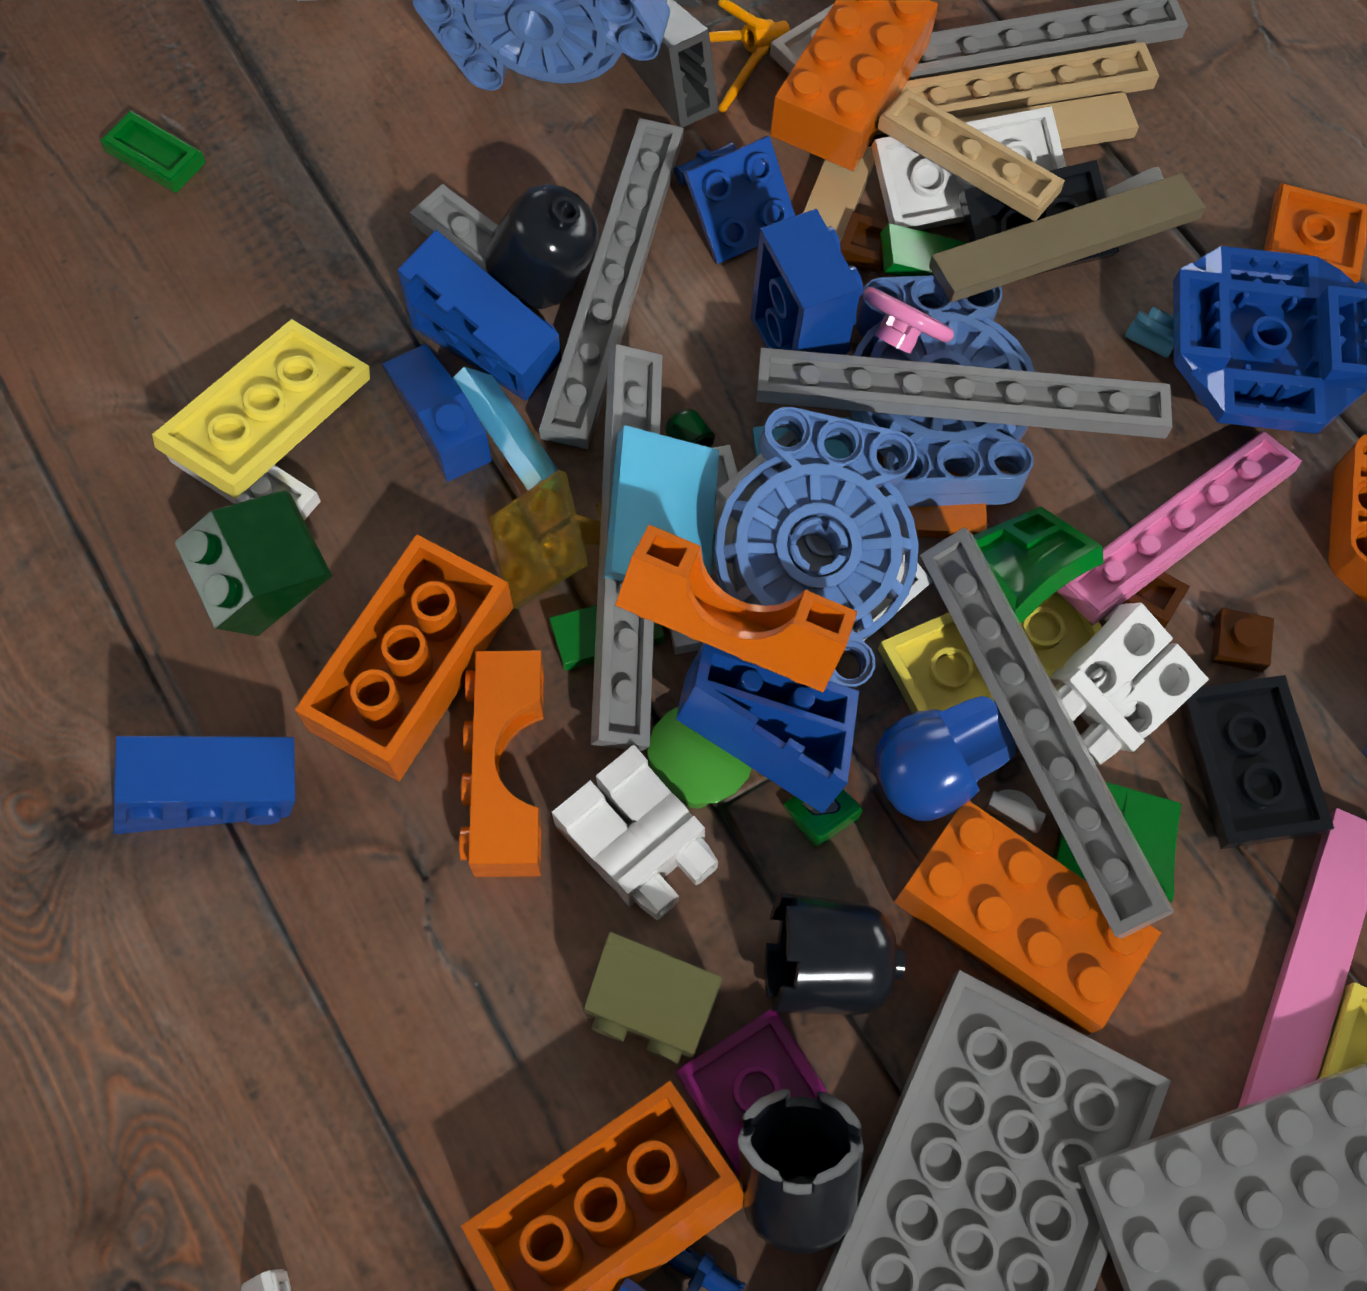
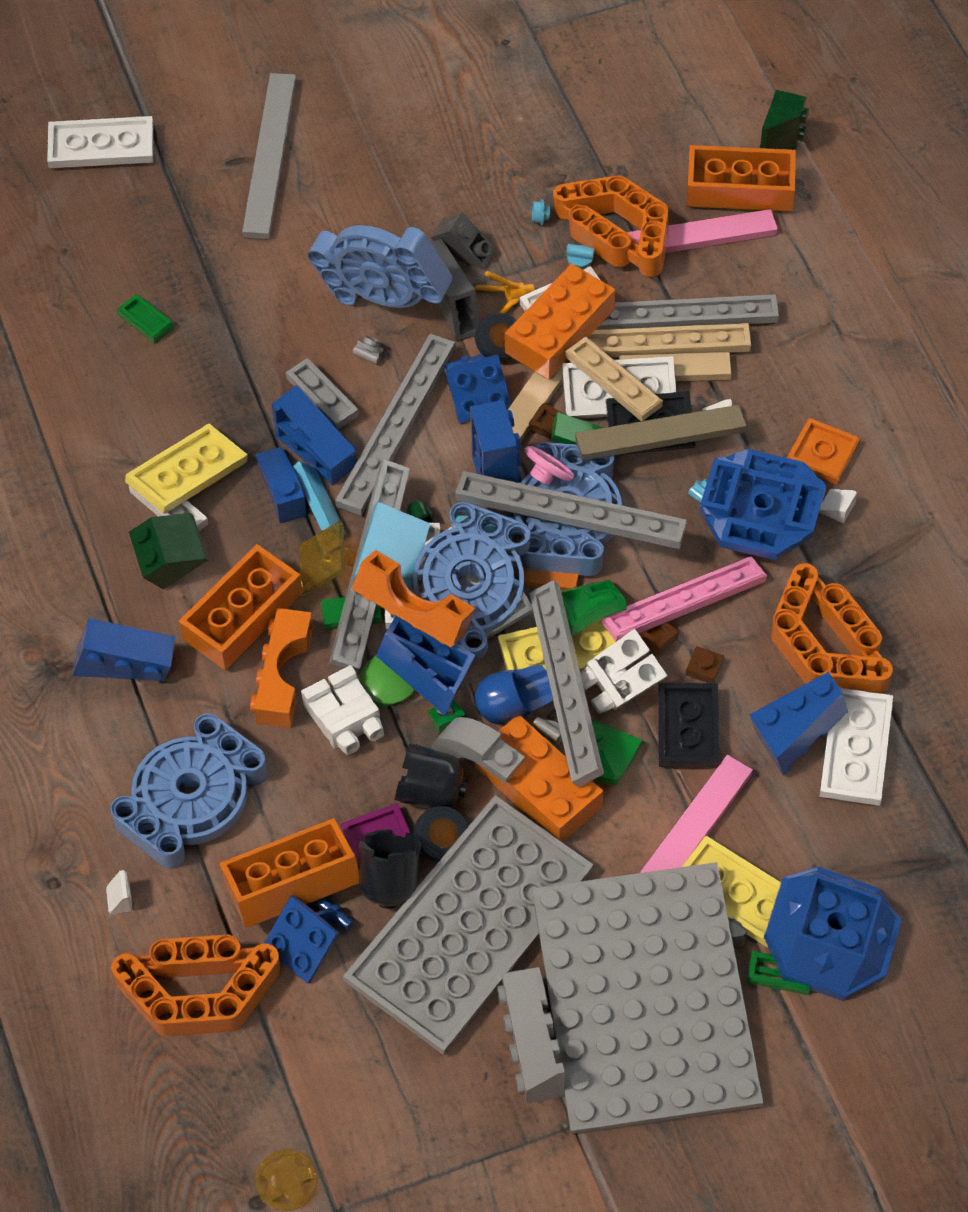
camera: 15 degrees right, 10 degrees down
(316, 1067) = (196, 816): none -> medium blue piece
(541, 158) = (369, 349): none -> light grey plate
(542, 245) = (356, 401): black cylinder -> none
(651, 999) = (334, 783): olive slope -> none
(746, 106) = (491, 335): none -> black wheel
(869, 1061) = (438, 831): none -> black wheel
(913, 879) = (480, 744): none -> light grey arch

